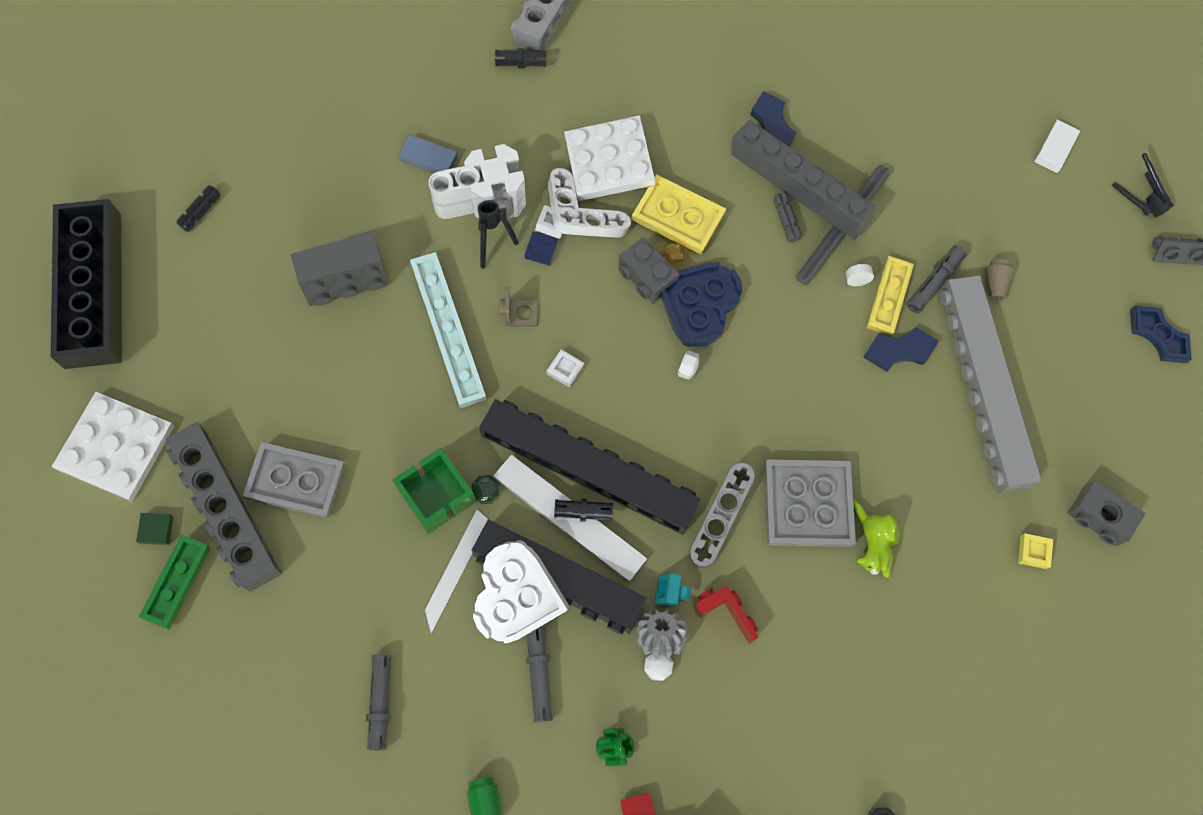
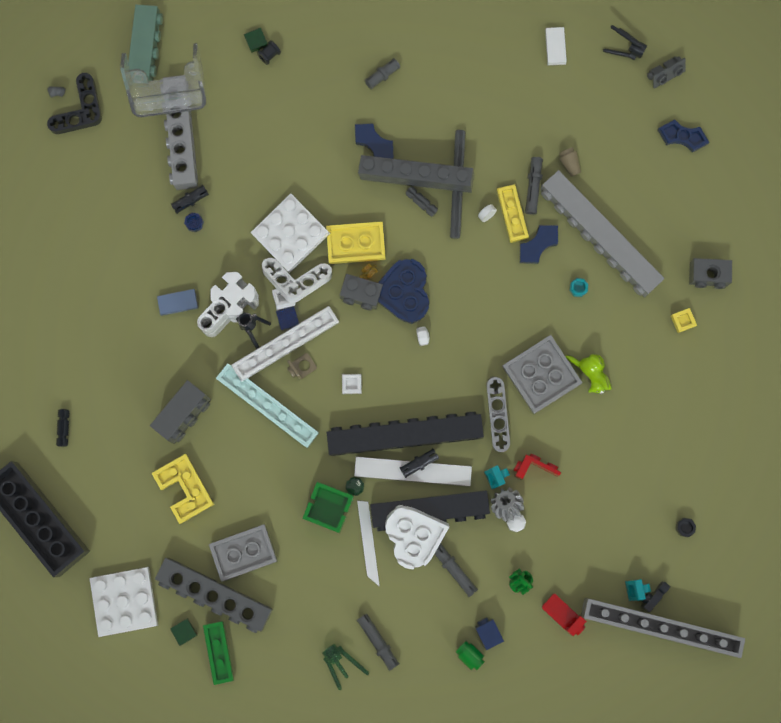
camera: 25 degrees left, 10 degrees up
(295, 345) = (197, 498): none -> light yellow plate
(310, 681) = (332, 655): none -> clear green plant
(508, 84) = (194, 222): none -> clear blue tile
(517, 272) = (285, 343): none -> white tile
(527, 787) = (488, 633): none -> dark blue brick
(831, 58) = (382, 73): none -> dark grey pin
(921, 428) = (578, 287): none -> teal tile

